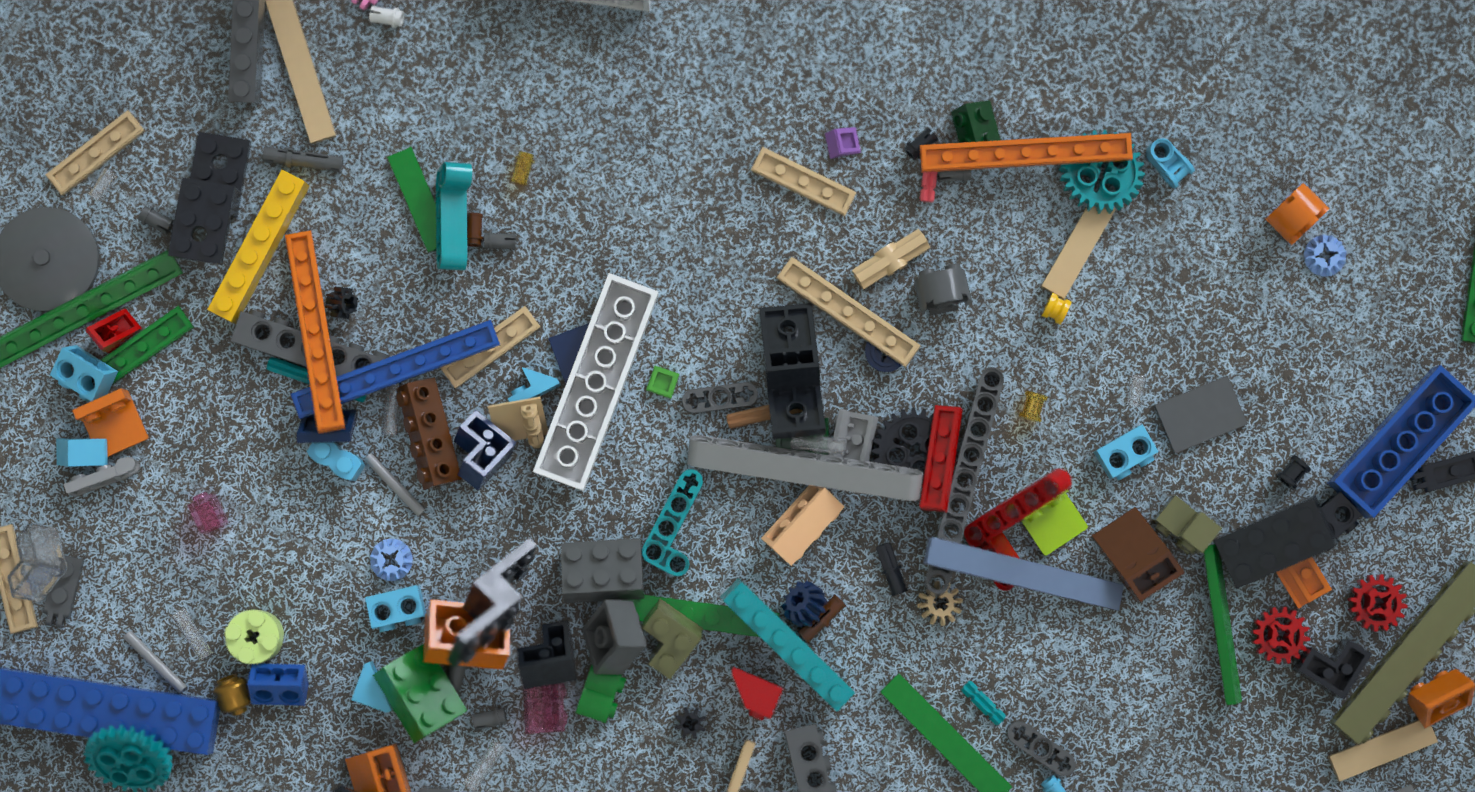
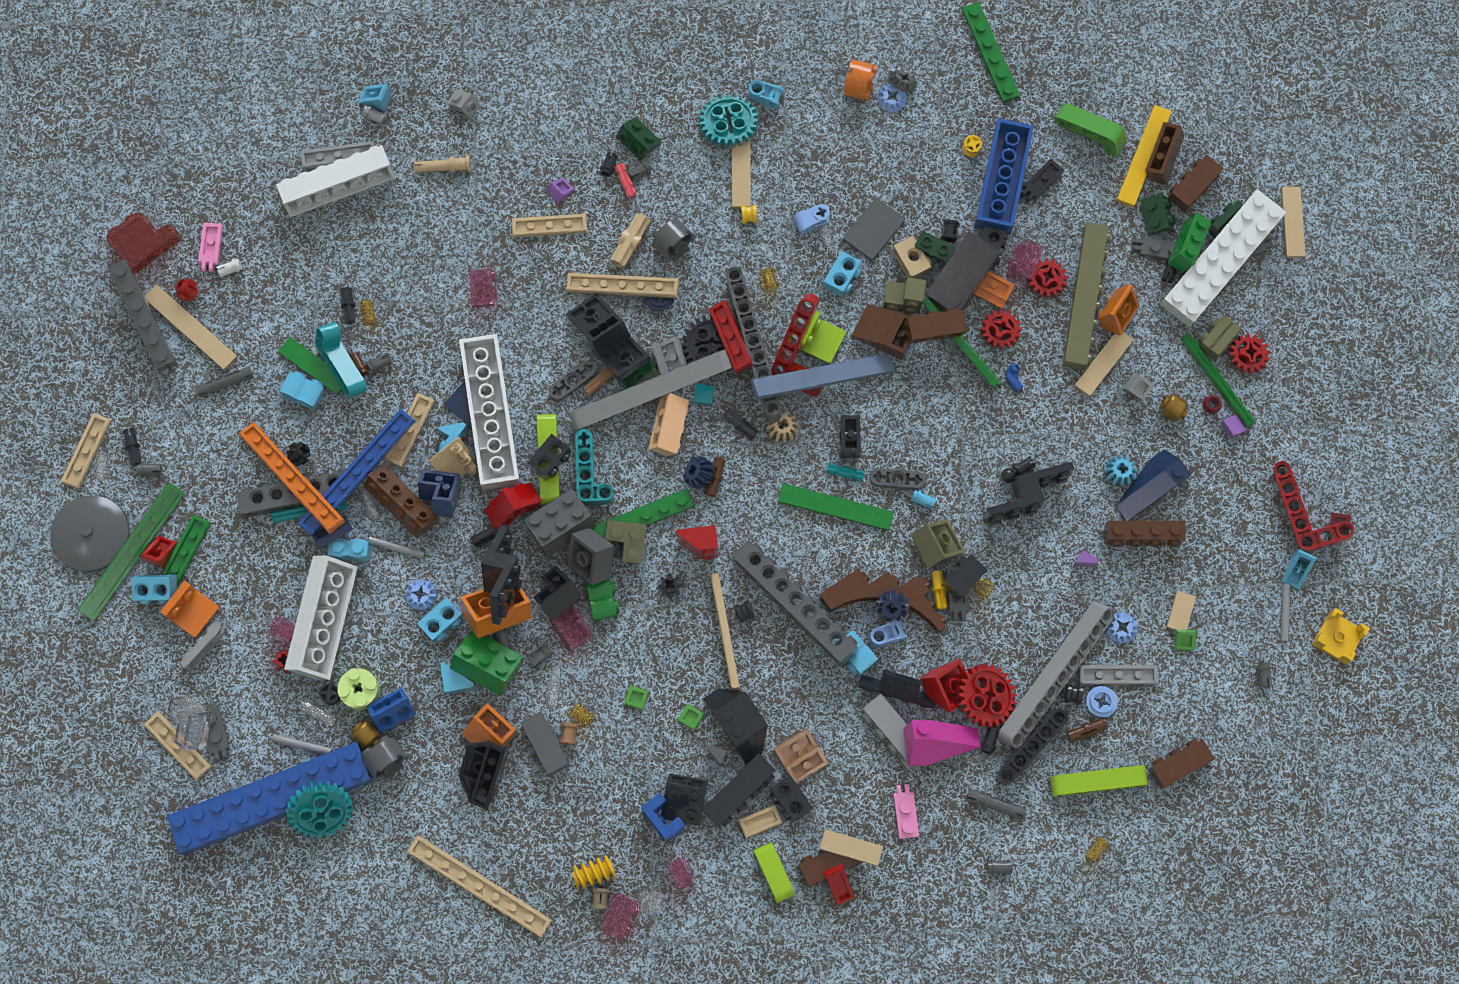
camera: 30 degrees left, 10 degrees down
(81, 452) = (179, 638): medium azure slope -> none
(151, 180) = (132, 447): none -> black axle
(182, 553) = (280, 657): none -> red gear
(209, 198) = (177, 436): black bracket -> none
(215, 618) = (327, 692): none -> black wheel
(237, 739) = (384, 758): none -> dark grey brick
(256, 526) = (321, 617): none -> white brick
(258, 246) = (225, 449): yellow brick -> none
(319, 16) = (186, 289): none -> red gear
(389, 225) = (302, 391): none -> medium azure brick
(502, 147) = (348, 305): none -> black axle
(502, 532) = (482, 537): none -> black pin
(555, 514) = (512, 503): none -> red brick
(631, 478) = (544, 455): none -> black brick
(634, 480) = (551, 488): none -> lime beam
(662, 382) = (531, 391): bright green tile -> none
(676, 217) = (482, 287): none -> clear pink bracket
(727, 34) = (452, 164): none -> tan pin
(787, 644) = (702, 501): teal brick -> none
(820, 444) = (650, 370): clear pin -> none
(868, 507) = (703, 394): none -> teal tile
(1013, 665) = (850, 436): none -> black brick
(1026, 152) = (675, 132): orange tile -> none
(1126, 358) = (809, 219): none -> light blue piece
(1199, 591) = (935, 325): none -> reddish brown brick
(1215, 494) = (912, 269): none -> tan brick
(1258, 701) = (1012, 375): none -> blue arm
(1260, 485) = (934, 246): none -> dark green bracket
(1335, 673) = (1046, 332): black brick -> none
(1343, 235) = (908, 83): none -> dark grey gear
(1363, 564) = (1025, 259): none -> clear pink bracket
(1393, 377) = (973, 142): none -> yellow wheel

